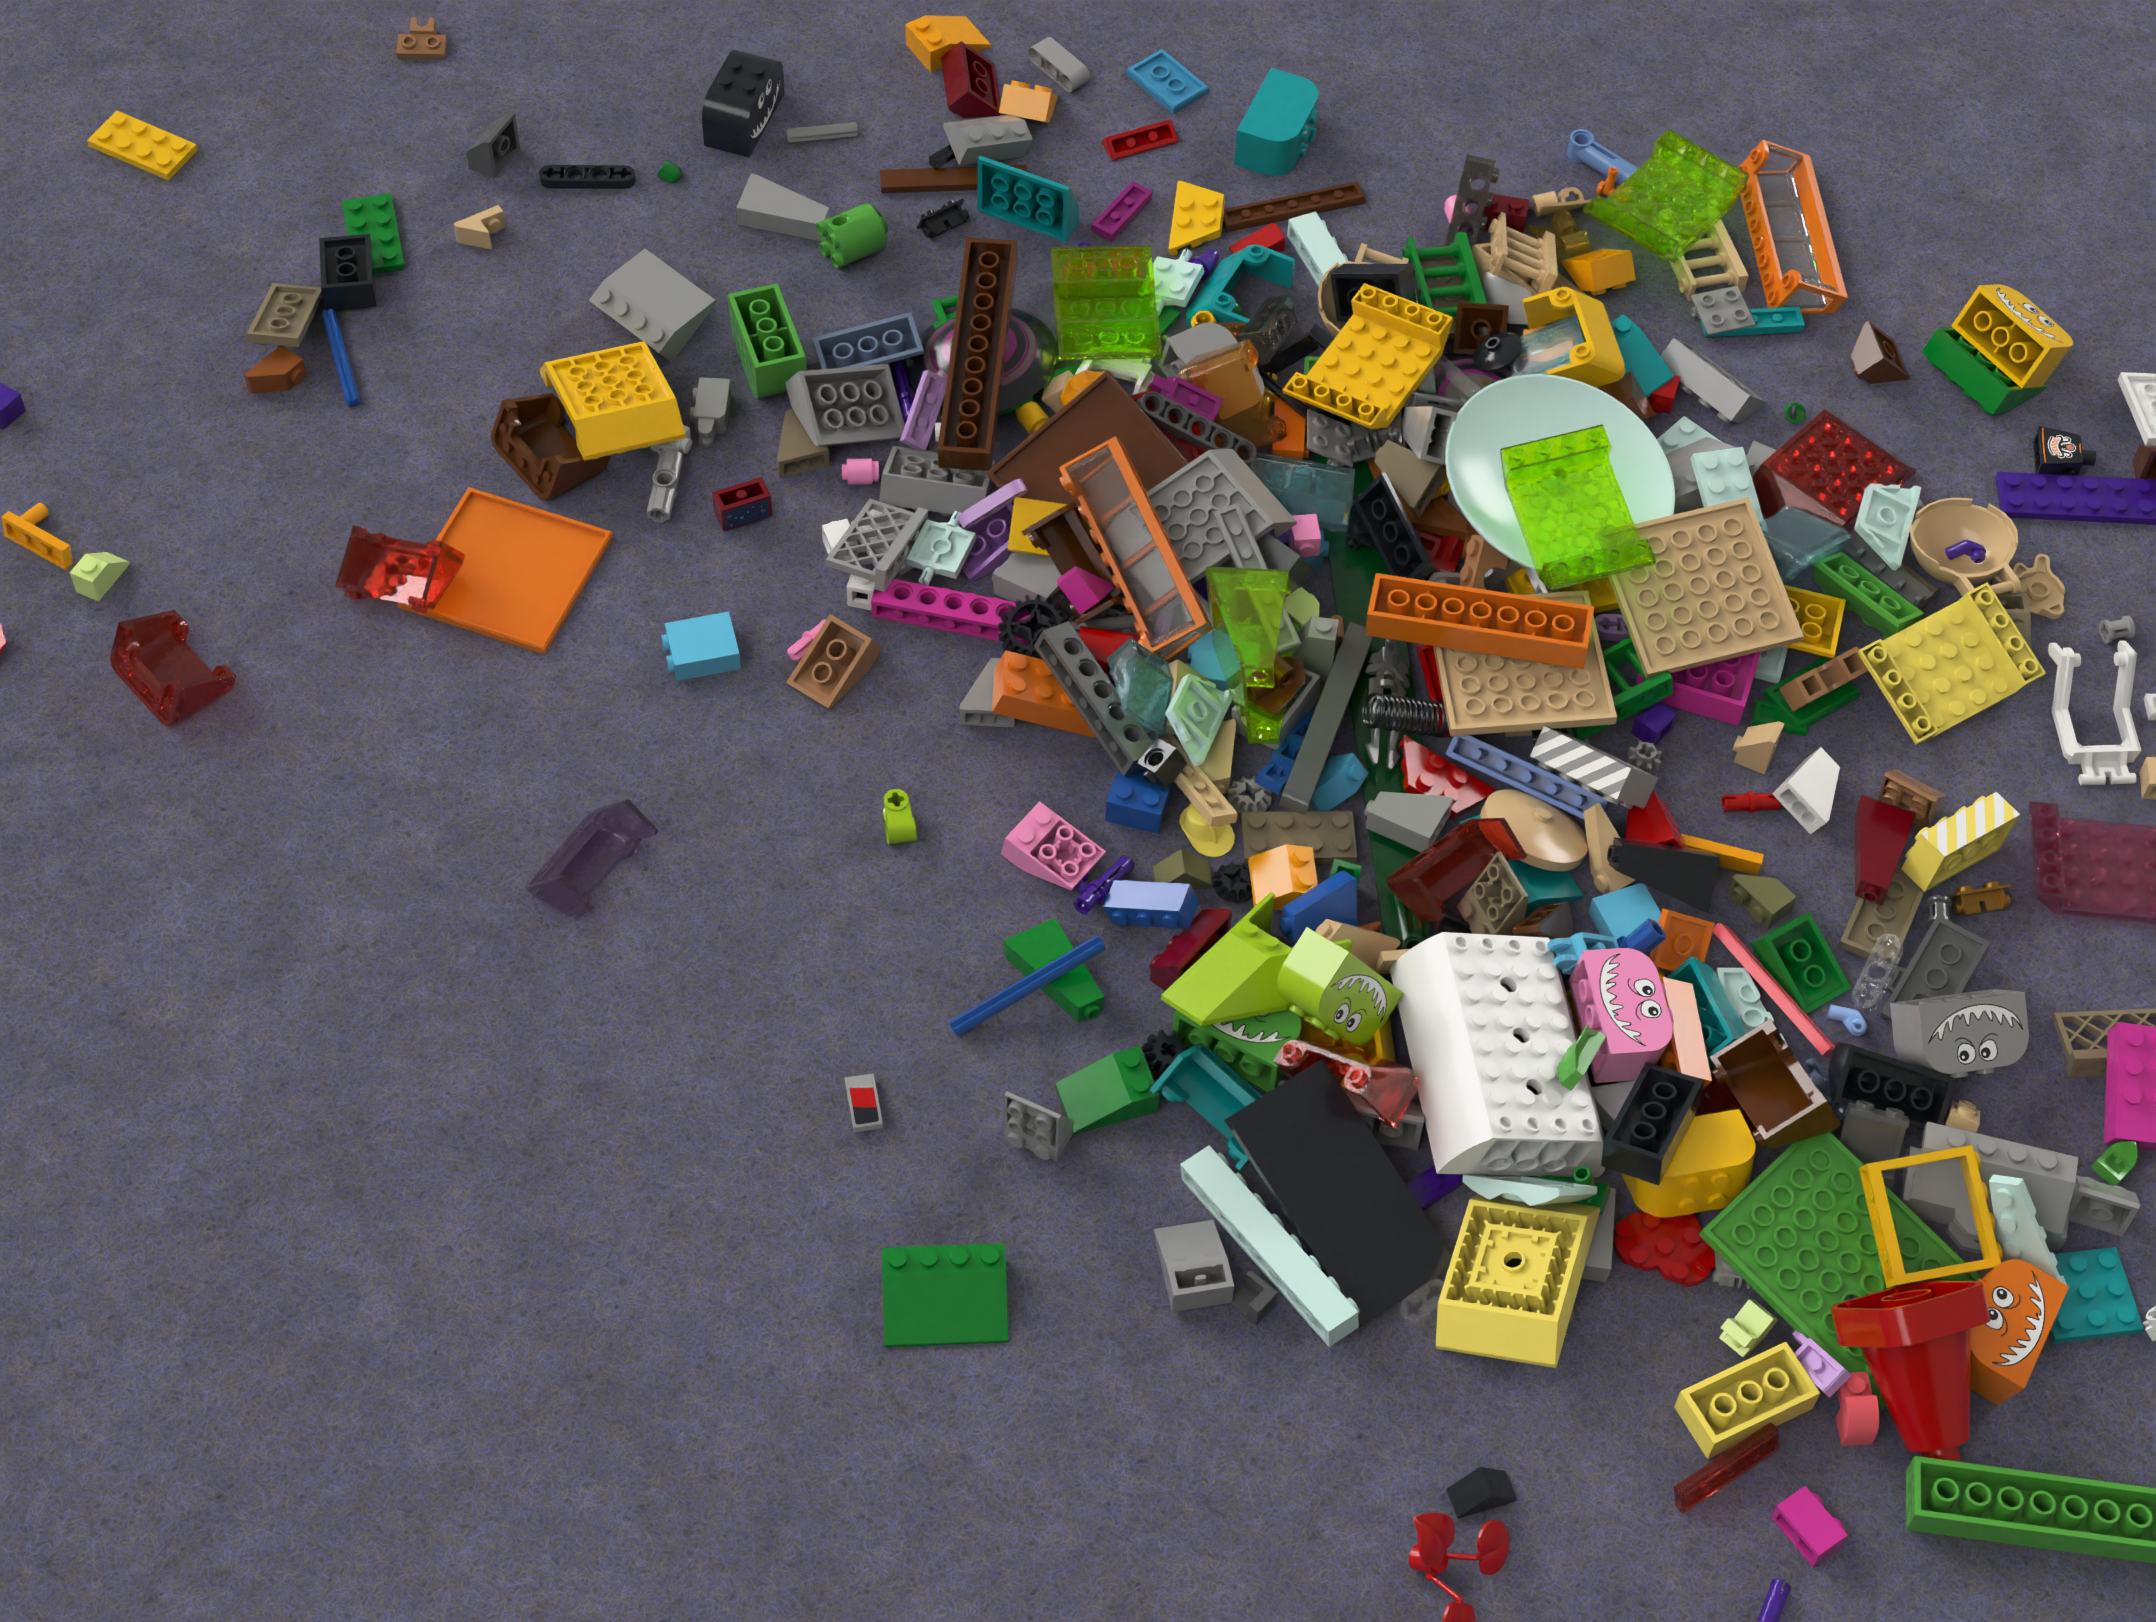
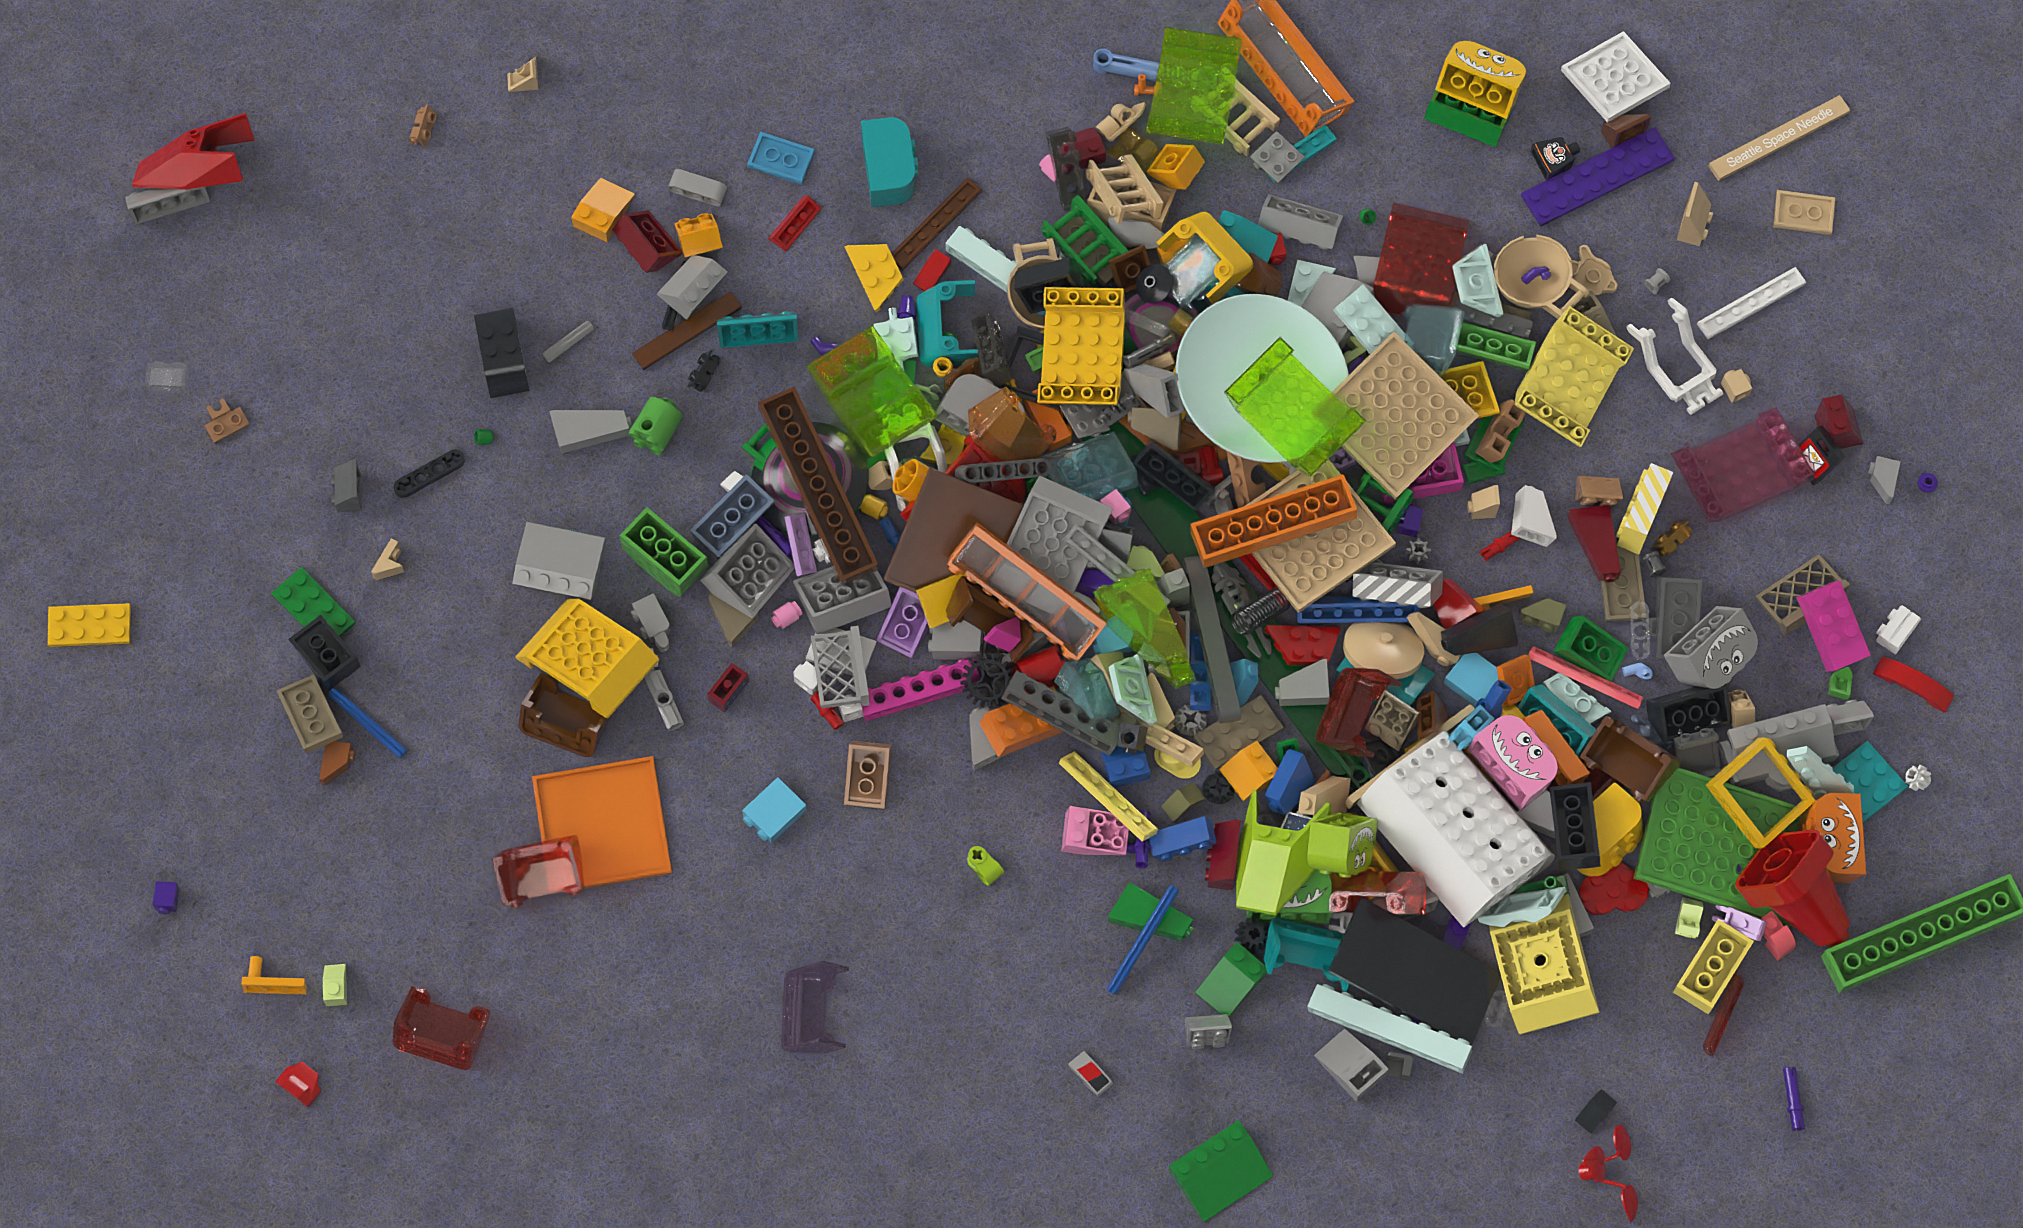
camera: 30 degrees left, 15 degrees up
(798, 649) = (840, 765): bright pink axle -> none
(836, 584) = (828, 713): none -> red pin
(941, 549) = (882, 648): light aqua plate -> none
(992, 504) = (901, 600): lavender beam -> none
(1094, 819) = (1108, 796): none -> light yellow tile
(1121, 211) = (822, 295): magenta plate -> none
(1187, 395) = (987, 452): magenta hinge -> none
(1579, 1057) = (1512, 811): bright green slope -> none
(1809, 1525) = (1787, 1024): dark pink brick -> none
(1877, 357) = (1398, 138): reddish brown slope -> none

